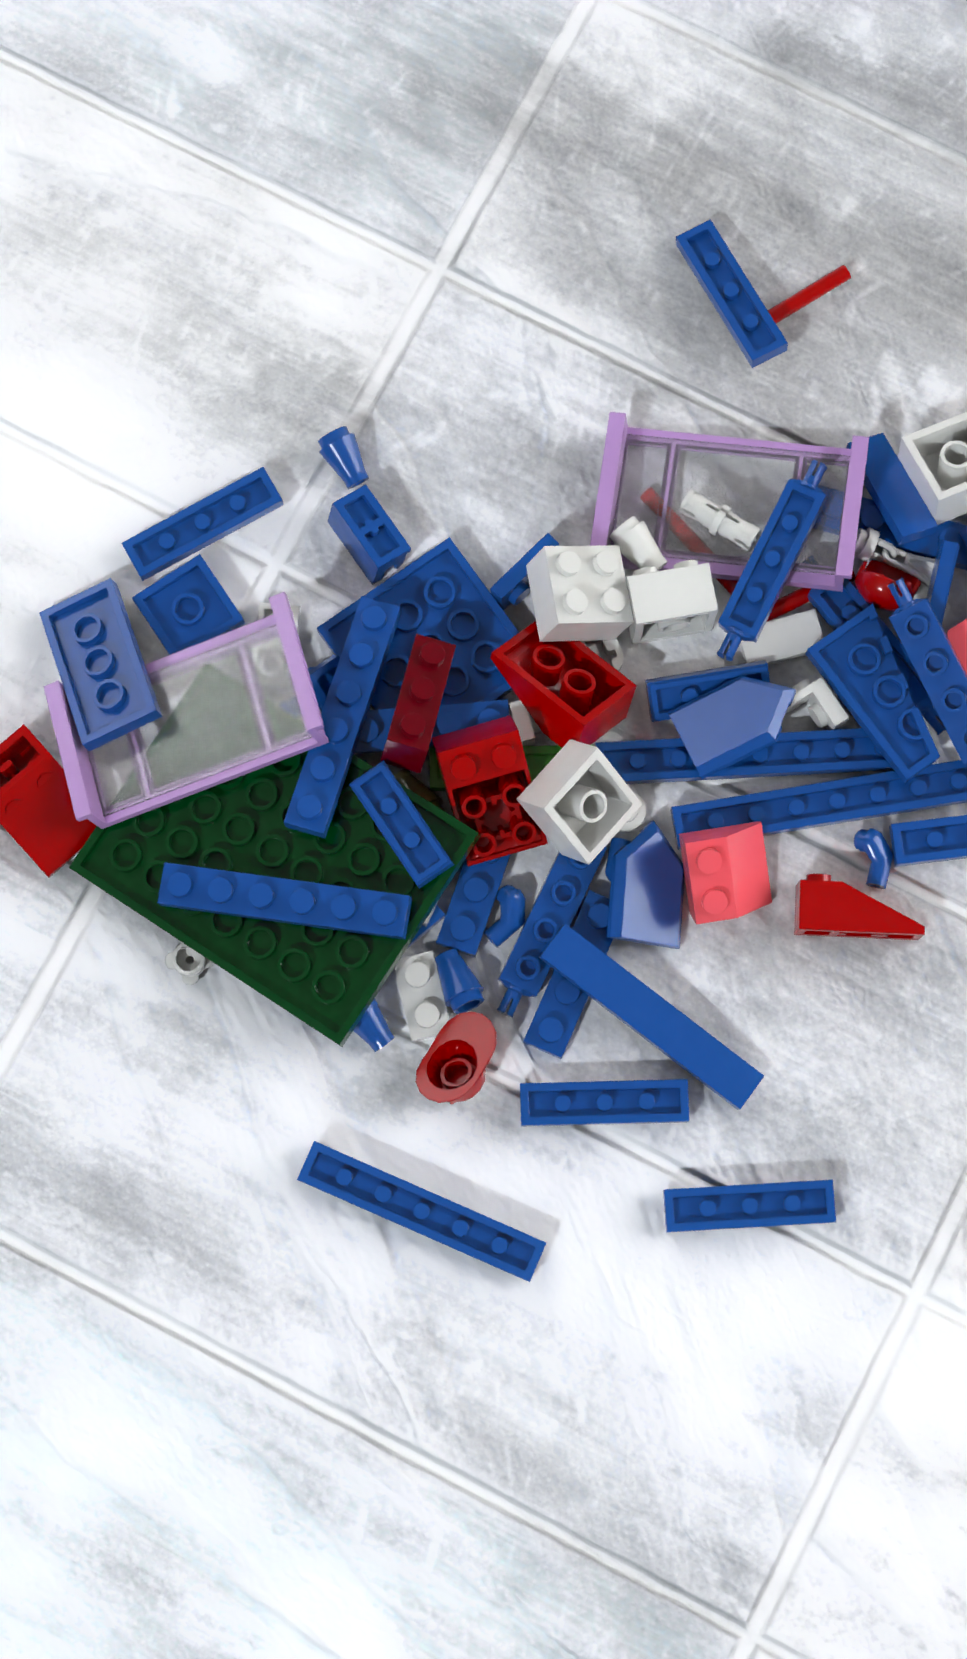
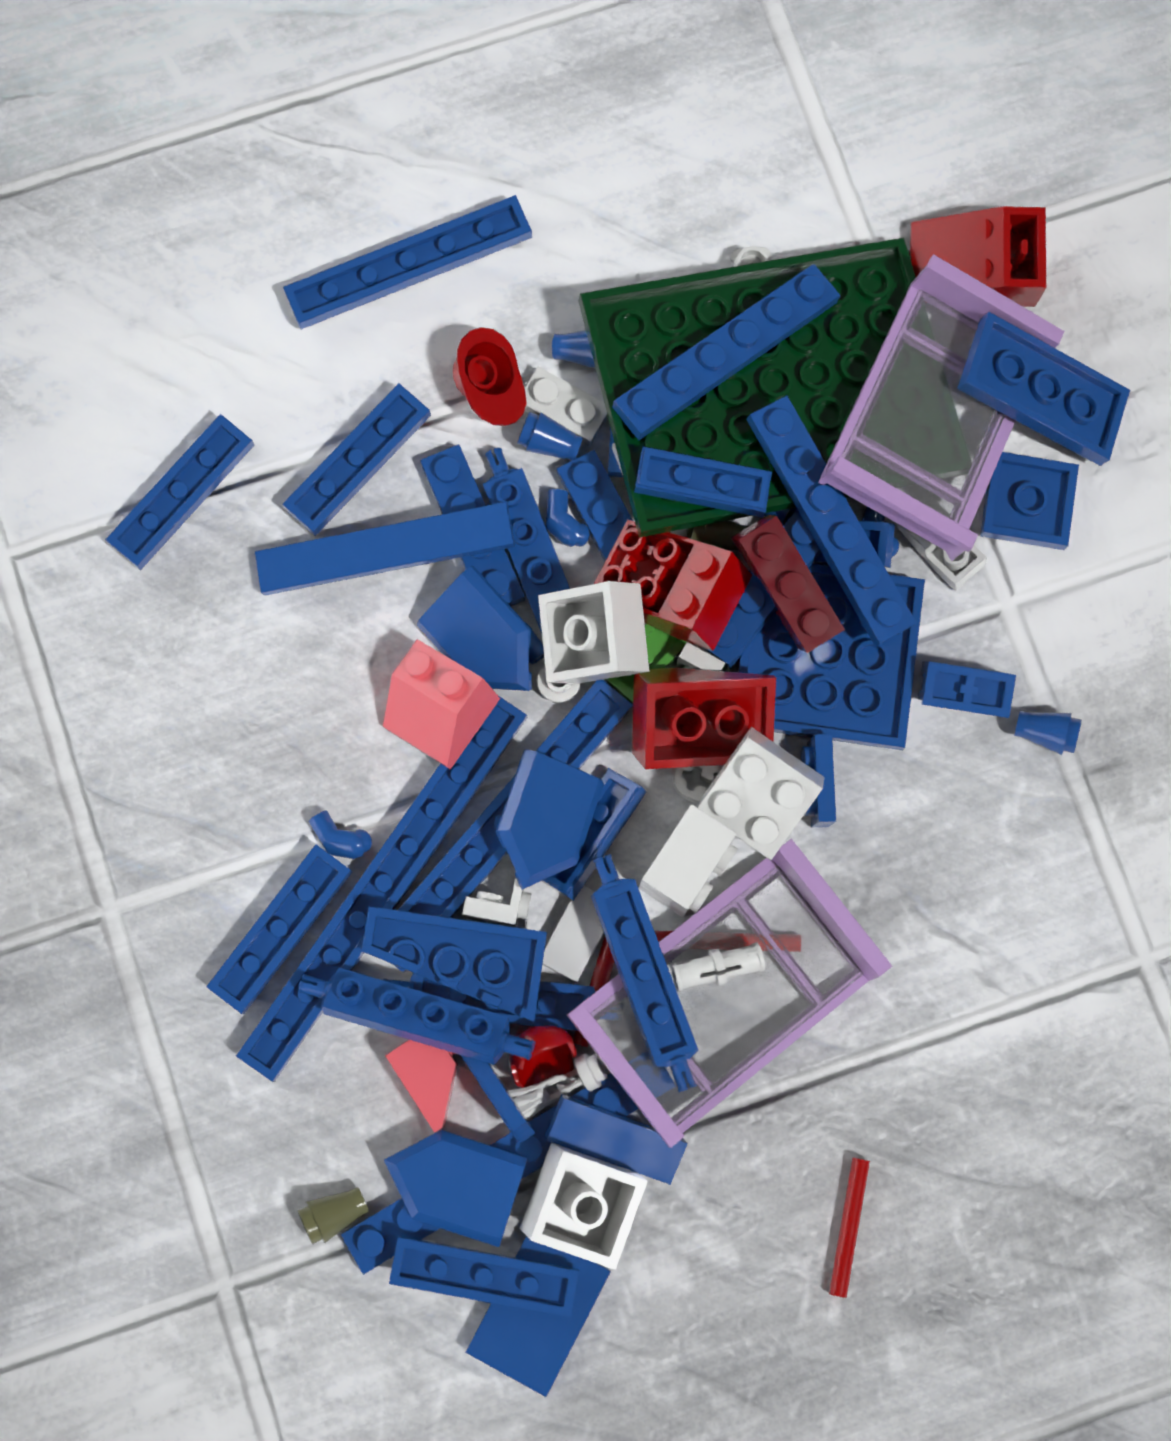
camera: 130 degrees right, 0 degrees up
(202, 523) = (1092, 573): blue plate -> none
(638, 544) = (758, 884): white cone -> none
(731, 293) = (905, 1172): blue plate -> none
(842, 911) = (321, 767): red slope -> none

